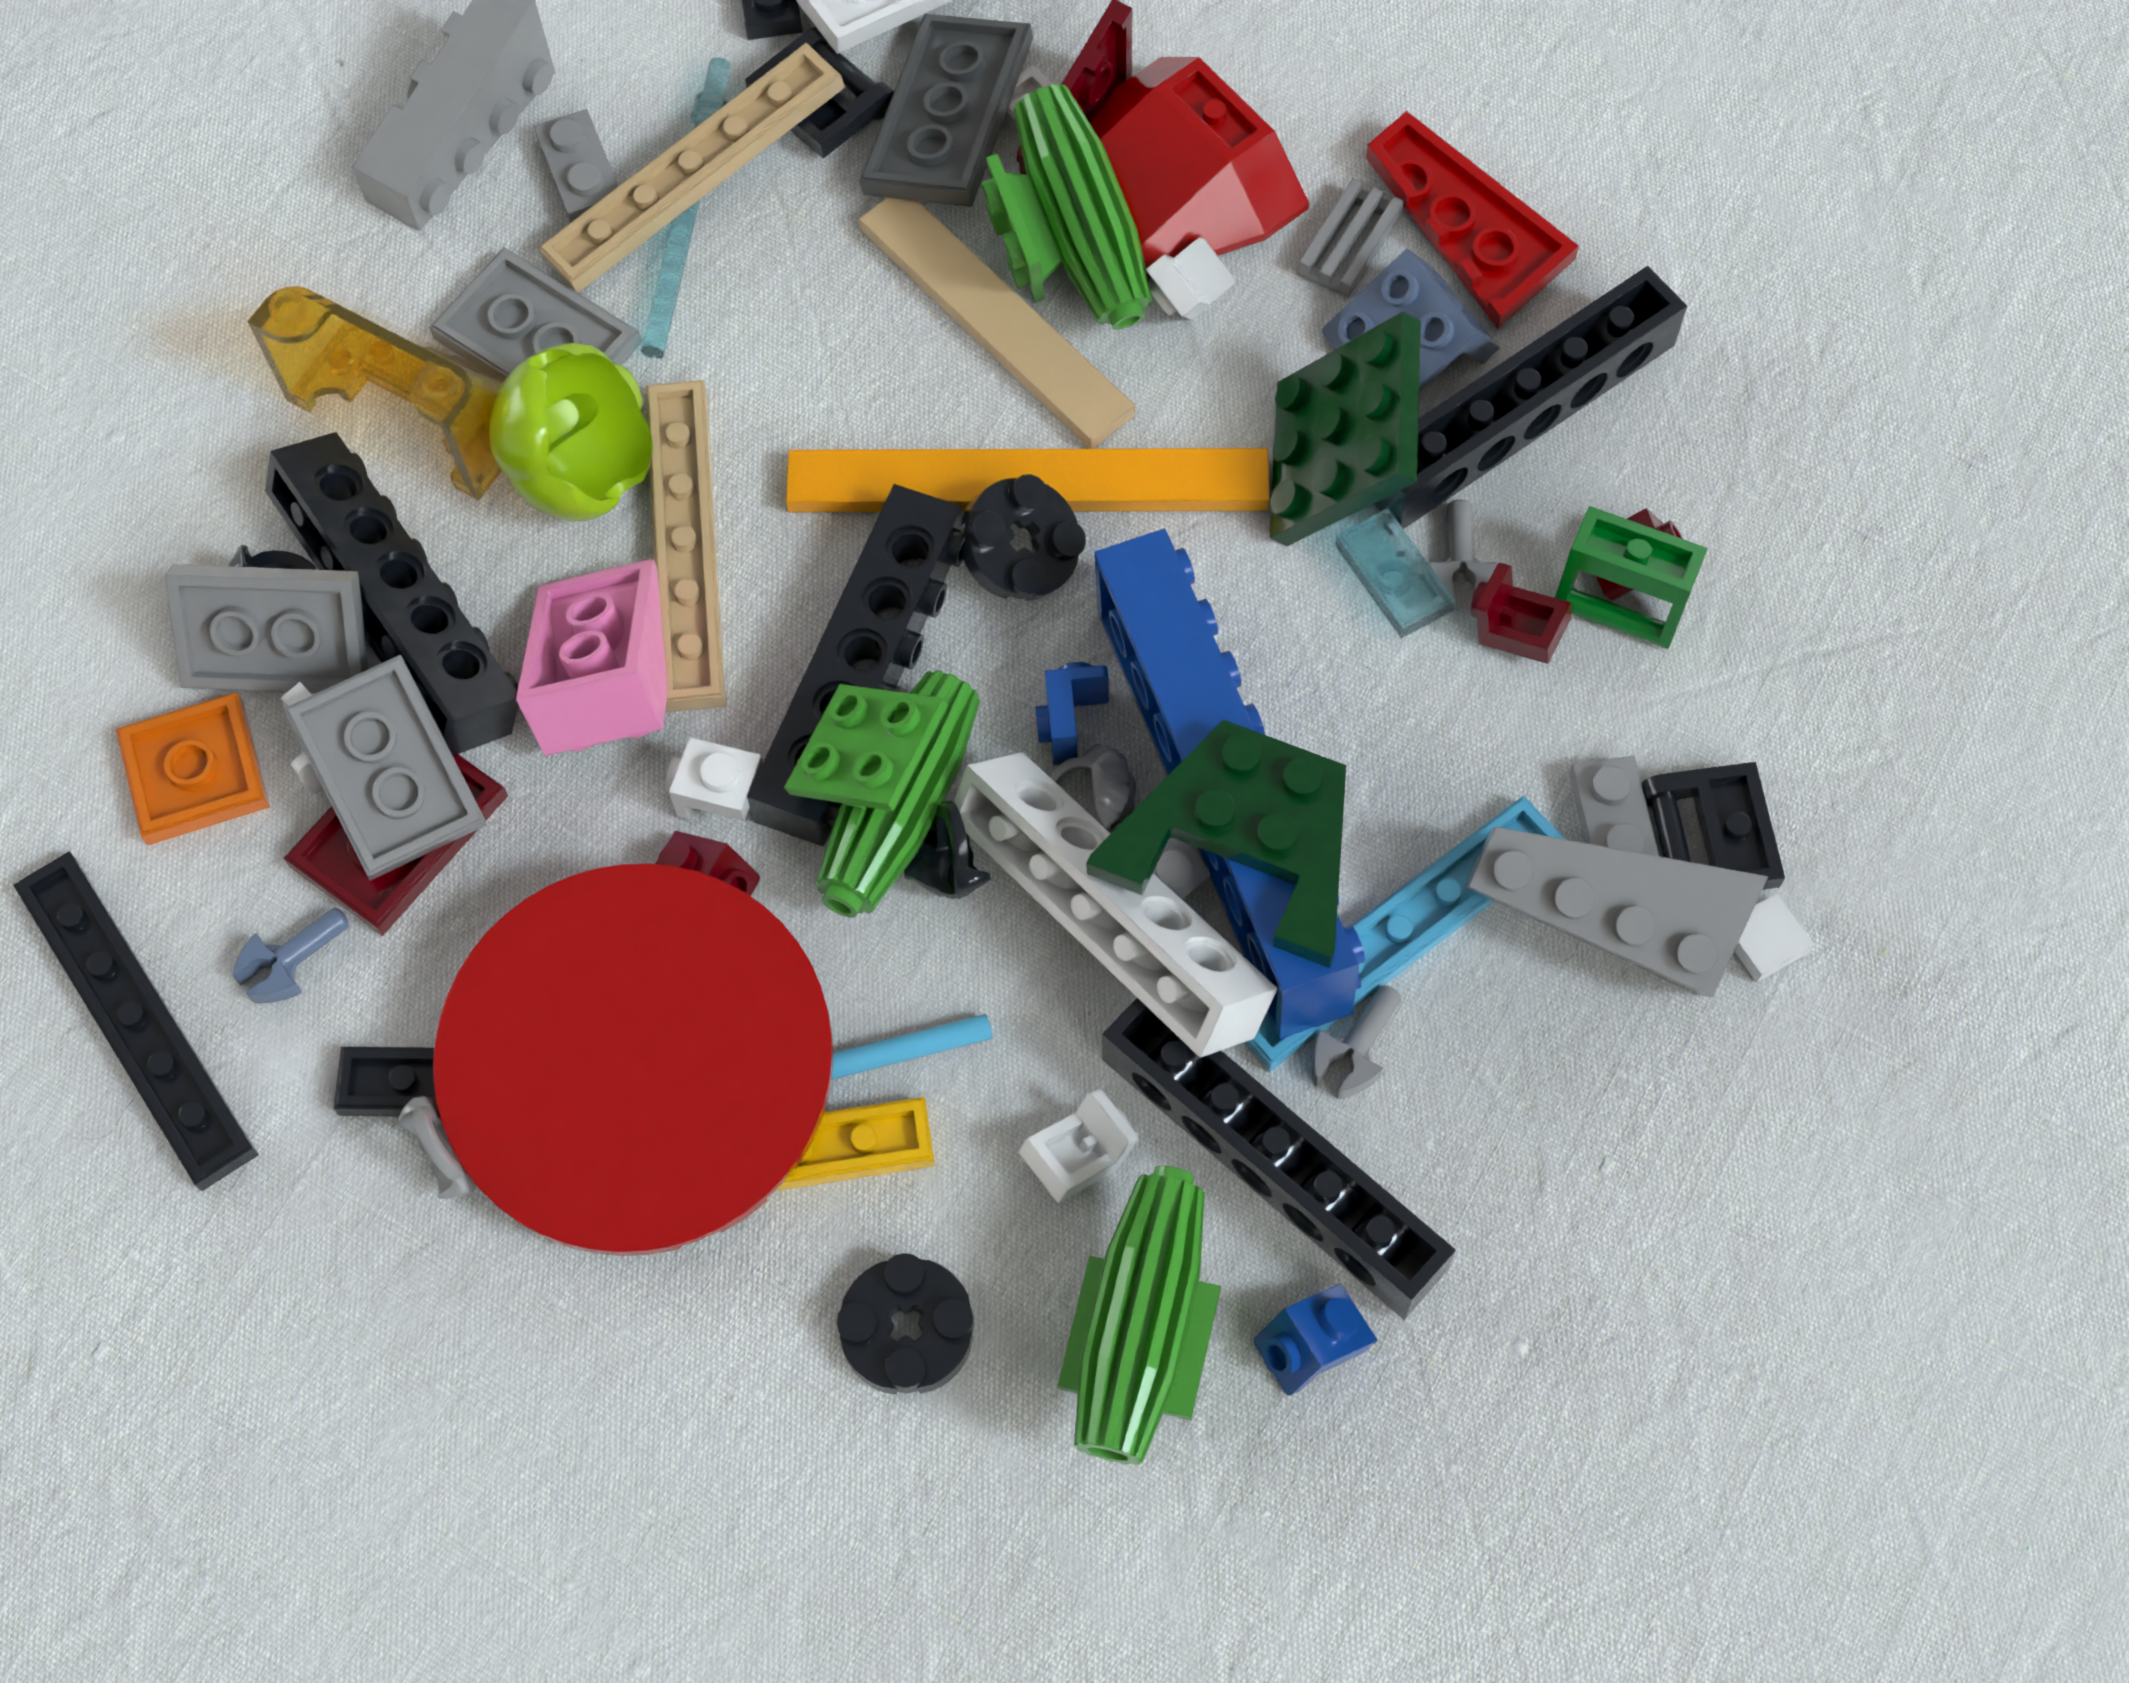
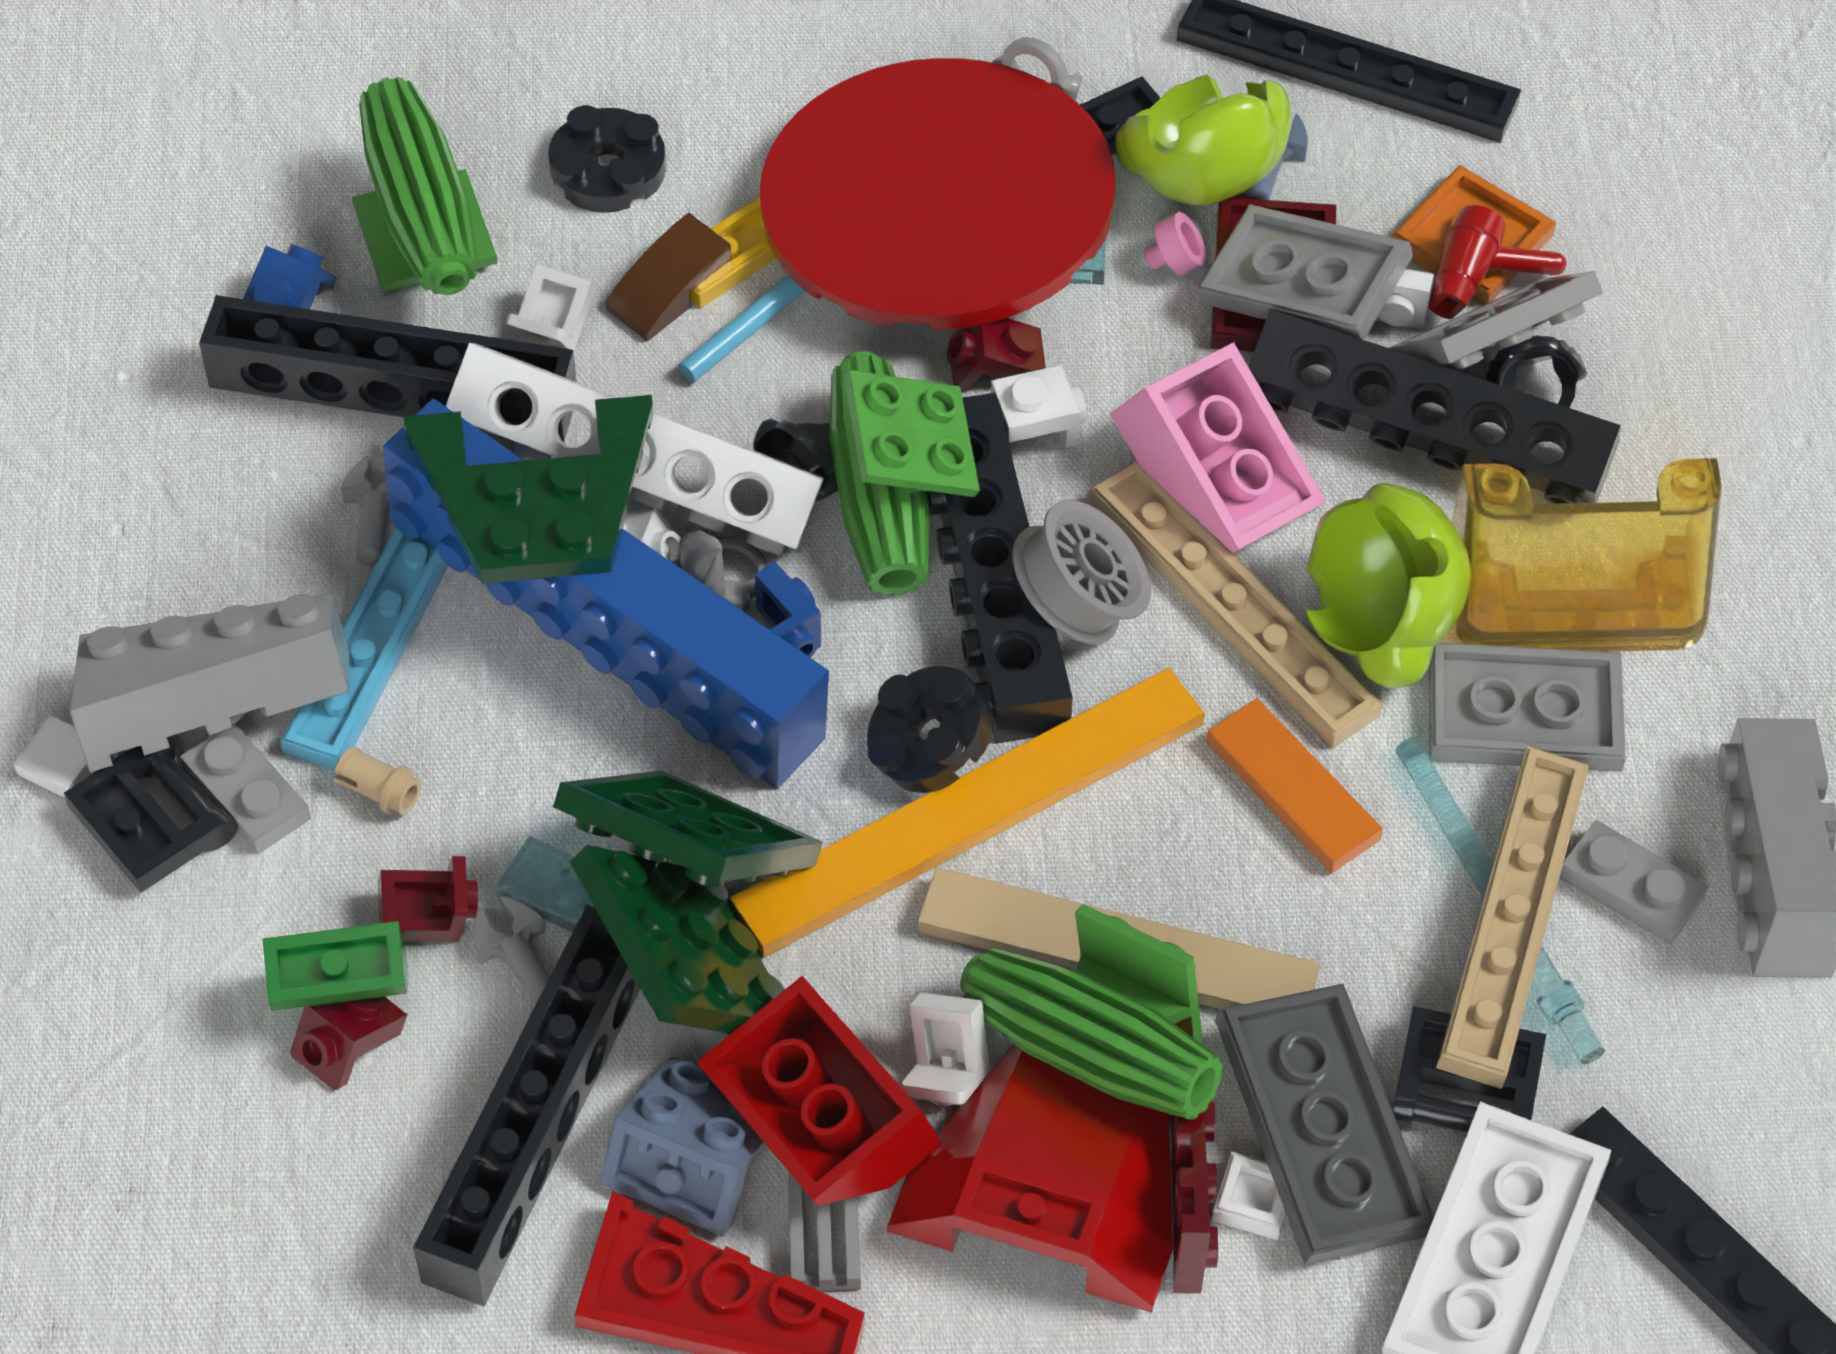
camera: 145 degrees right, 10 degrees down
(224, 714) = (1473, 250): none -> red piece
(350, 952) = (1206, 145): none -> lime piece
(459, 890) = (1177, 245): none -> bright pink tile
(764, 367) = (1294, 785): none -> orange tile
(804, 586) = (1081, 572): none -> light grey wheel
(939, 1132) = (660, 280): none -> reddish brown slope
(1285, 513) = (687, 826): none -> dark green plate
(1305, 275) = (819, 1098): none -> red slope
(1500, 756) = (390, 787): none -> tan pin

